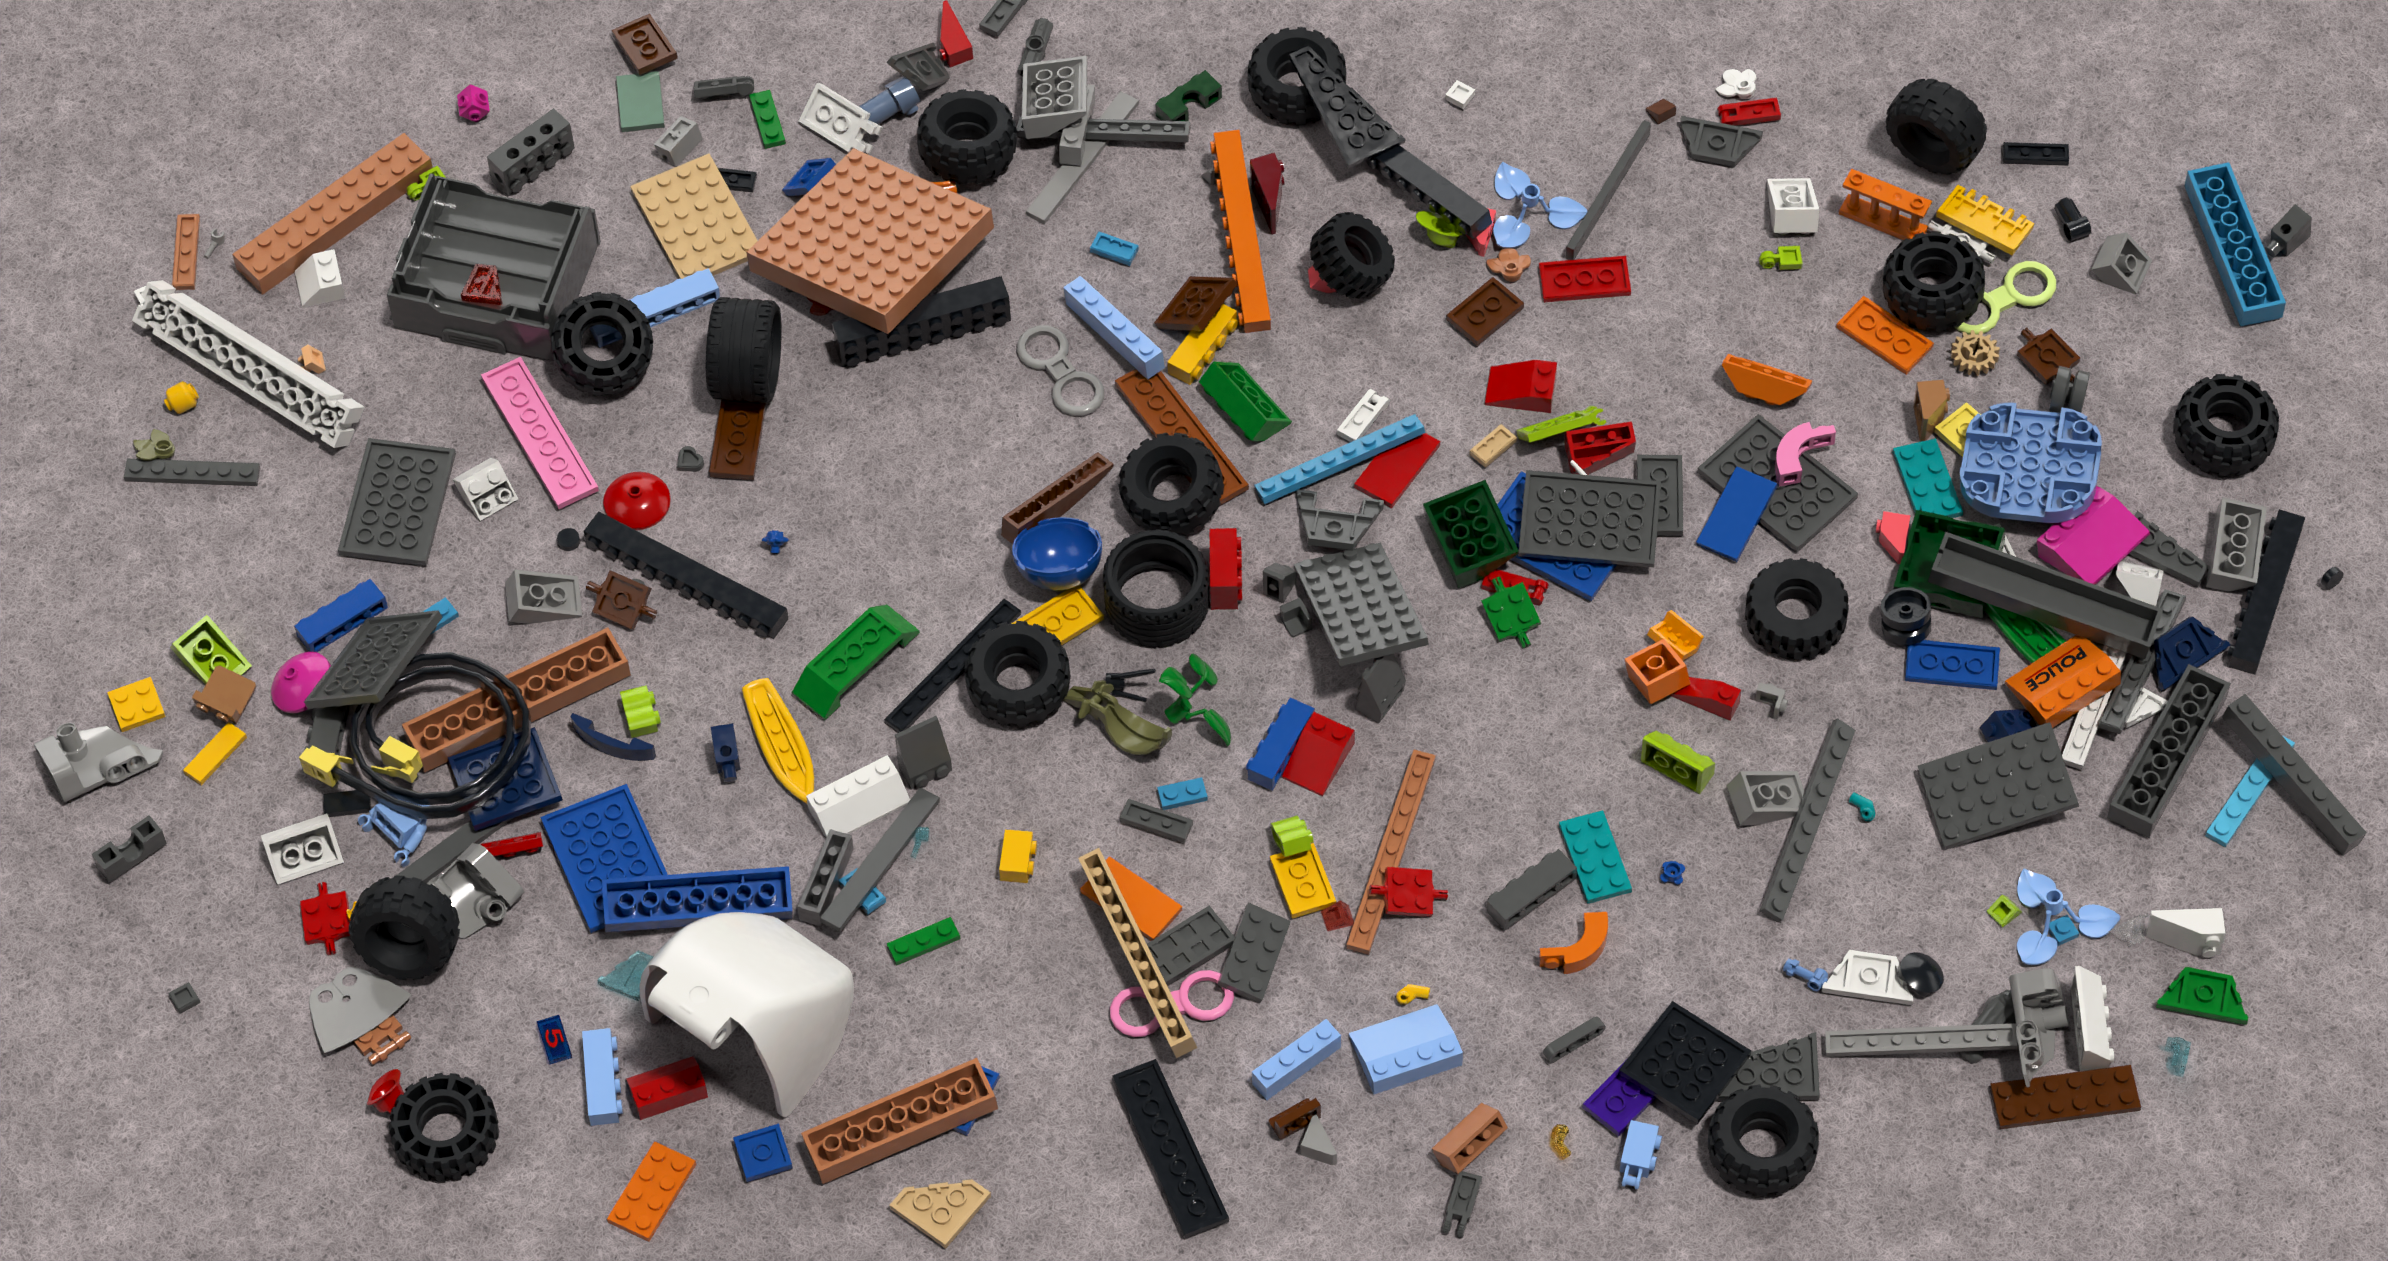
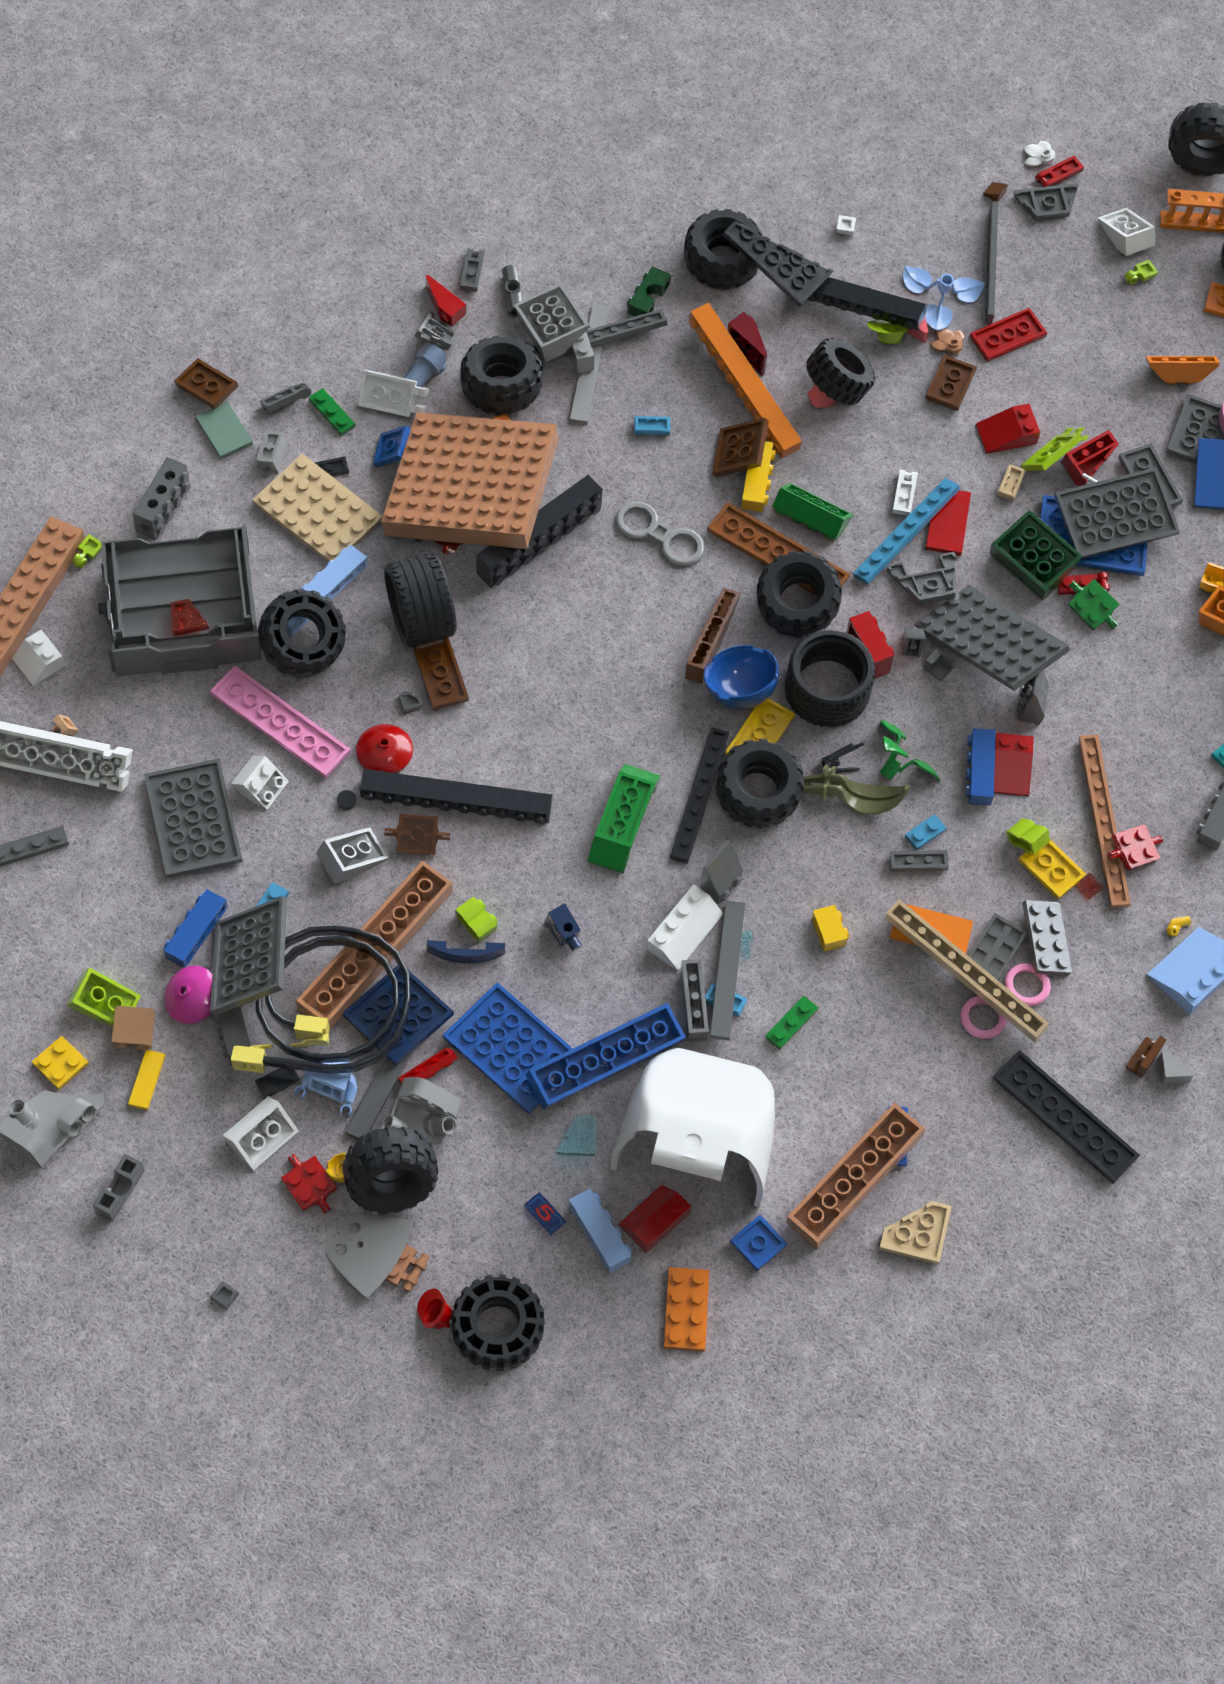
camera: 30 degrees left, 5 degrees up
(473, 103) = (92, 474): dark pink brick -> none
(775, 540) = (512, 742): blue plant -> none
(779, 738) = (597, 901): yellow piece -> none
(1114, 327) = (688, 486): light blue brick -> none
(1296, 1059) = (1123, 1010): light blue brick -> none

